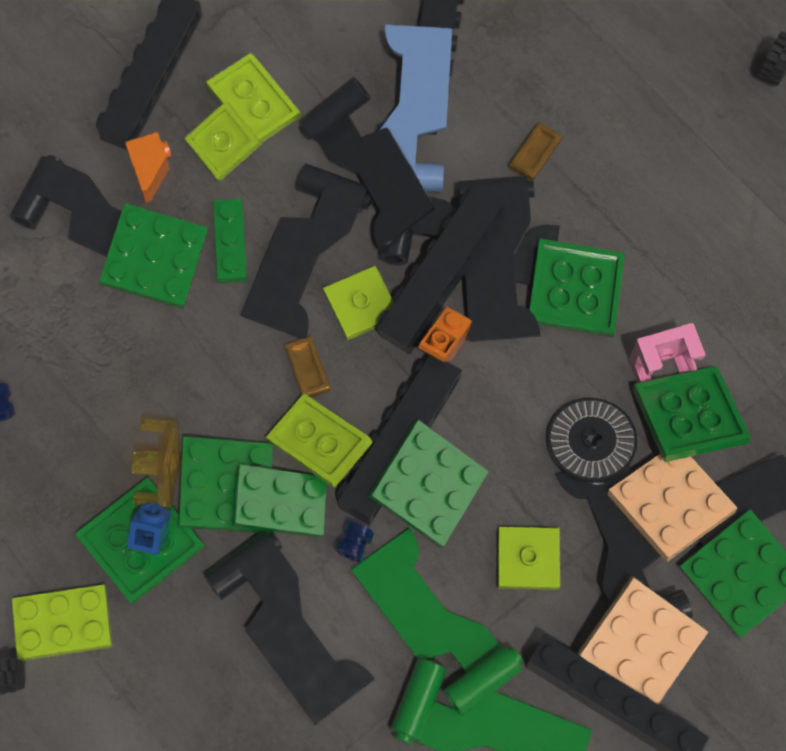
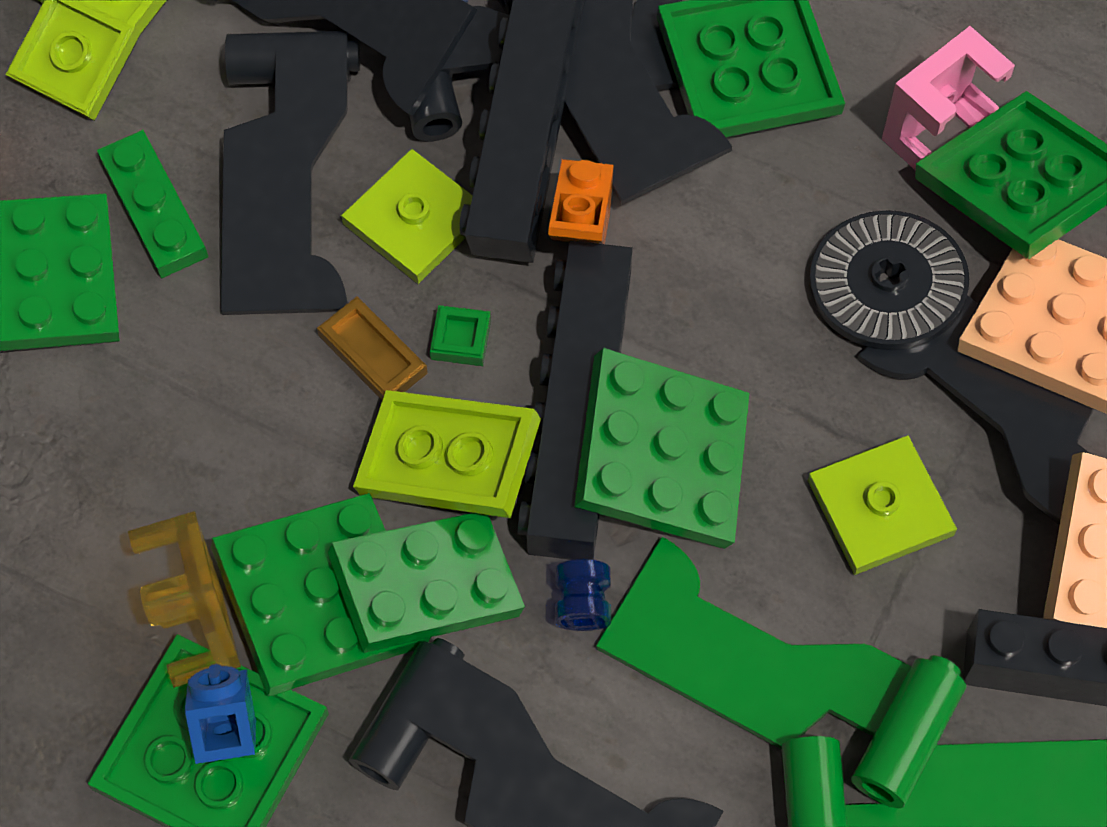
camera: 20 degrees left, 5 degrees down
(356, 378) = (460, 335): none -> green tile

